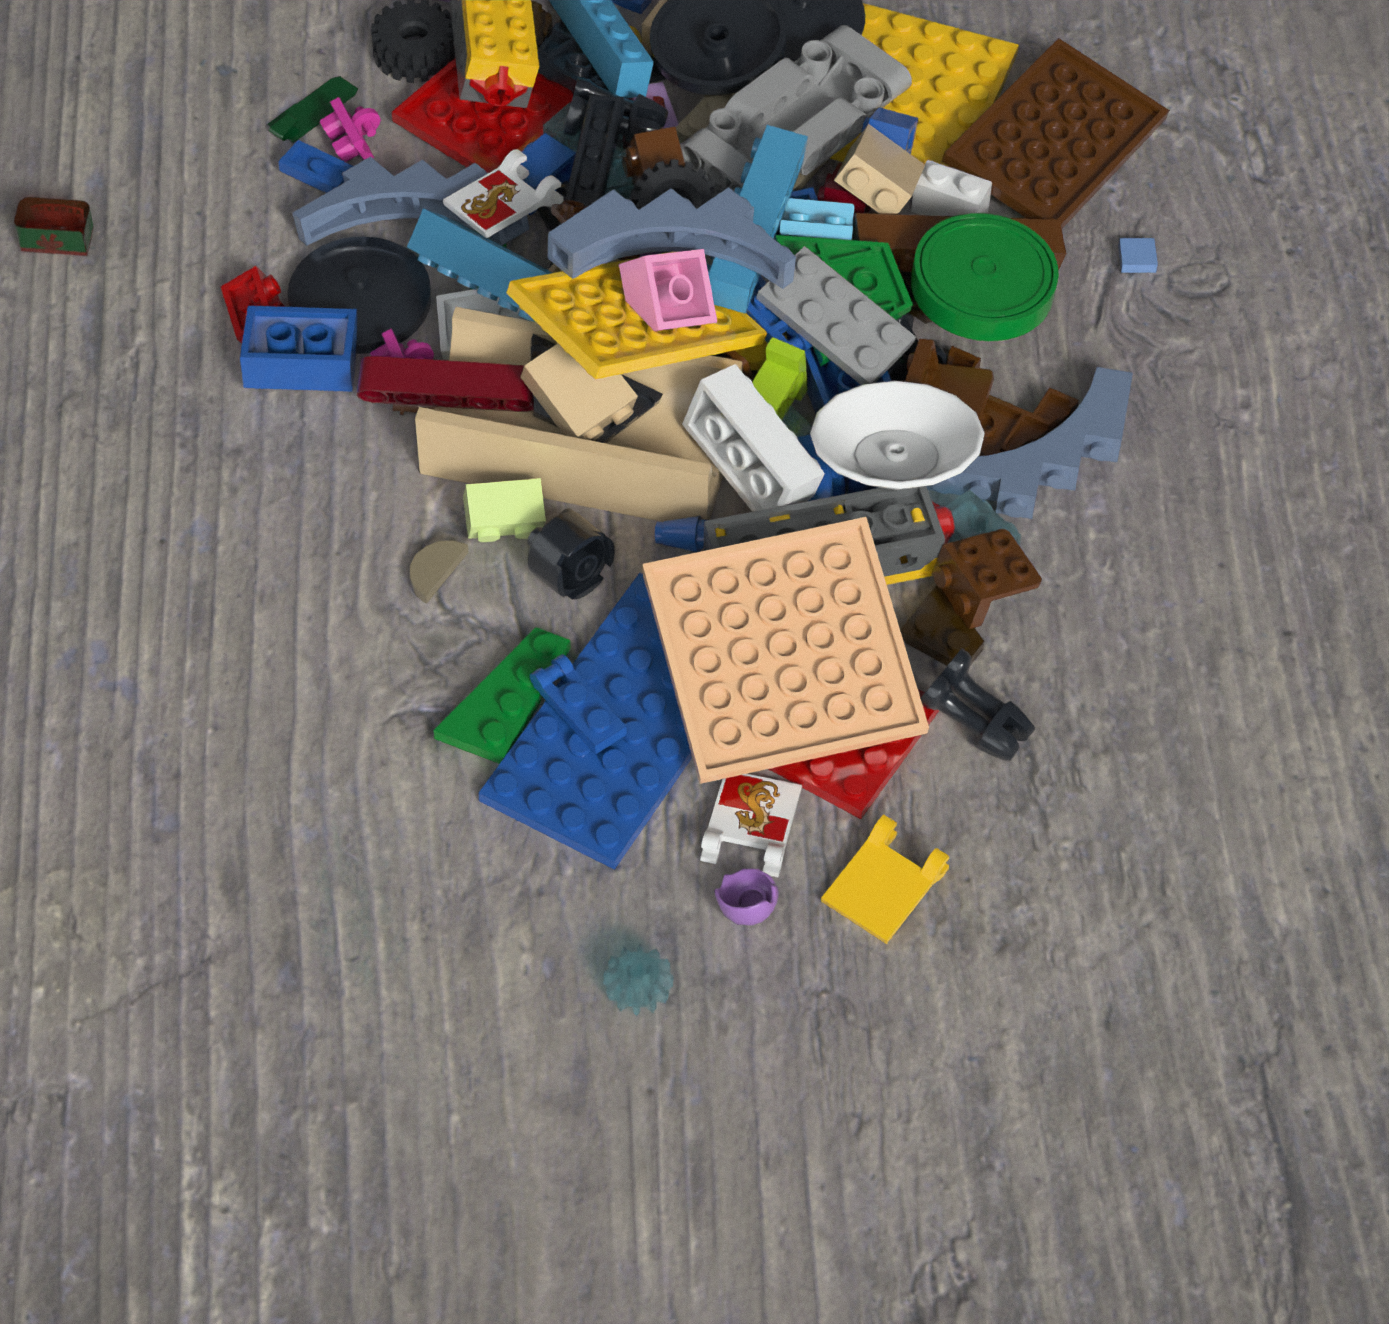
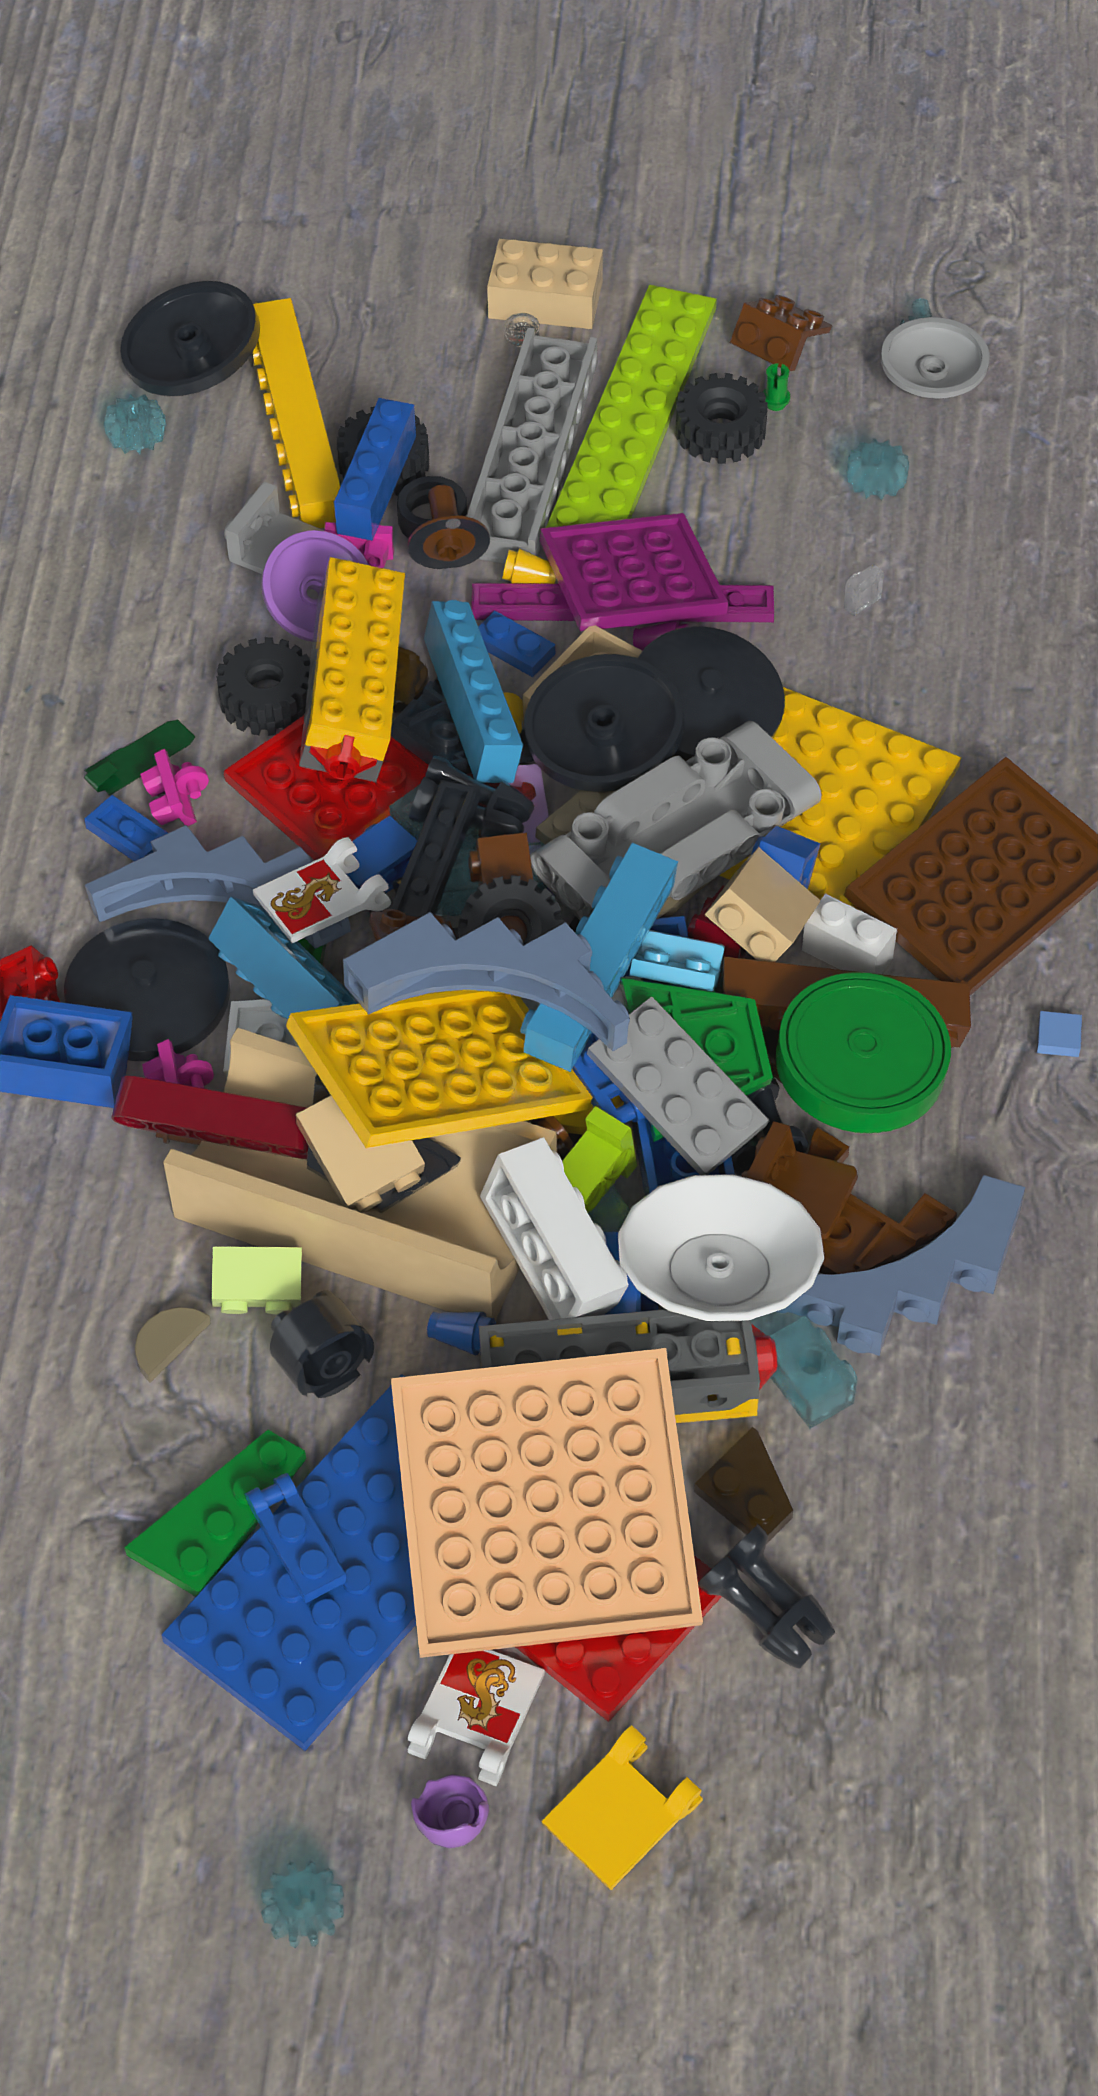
camera: 10 degrees right, 0 degrees up
(669, 289) = (480, 1041): bright pink slope -> none
(982, 571) = (803, 1426): reddish brown bracket -> none

